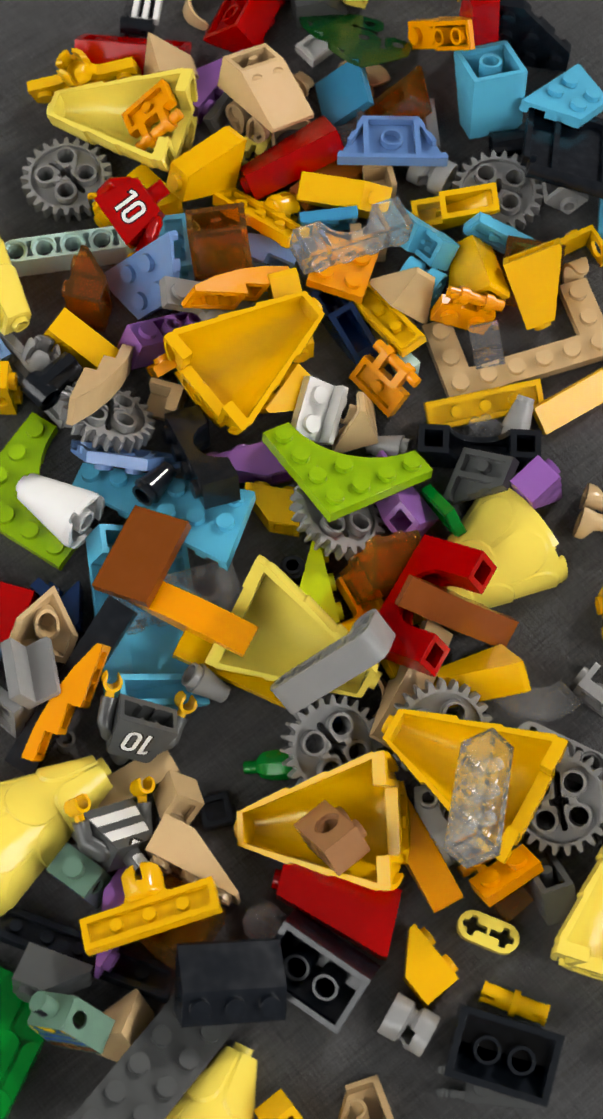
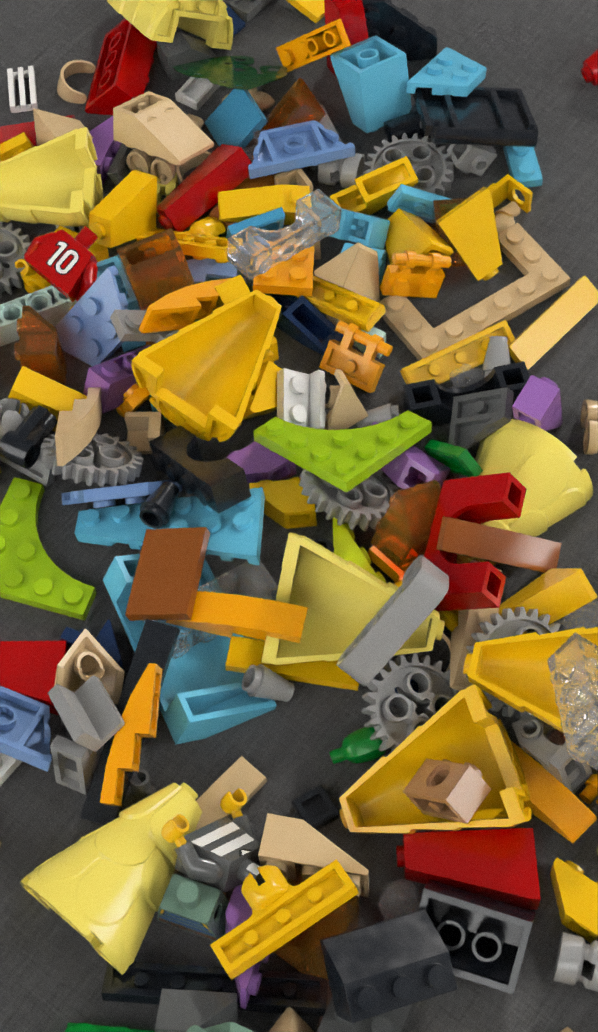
camera: 10 degrees left, 10 degrees down
(61, 507) = (70, 553): white cone -> none
(136, 26) = (17, 113): black pin -> none
(139, 727) = (212, 741): dark grey torso -> none
(149, 109) = (53, 176): light orange plate -> none
(178, 797) = (273, 799): tan panel -> none
(486, 344) = (444, 302): clear panel -> none

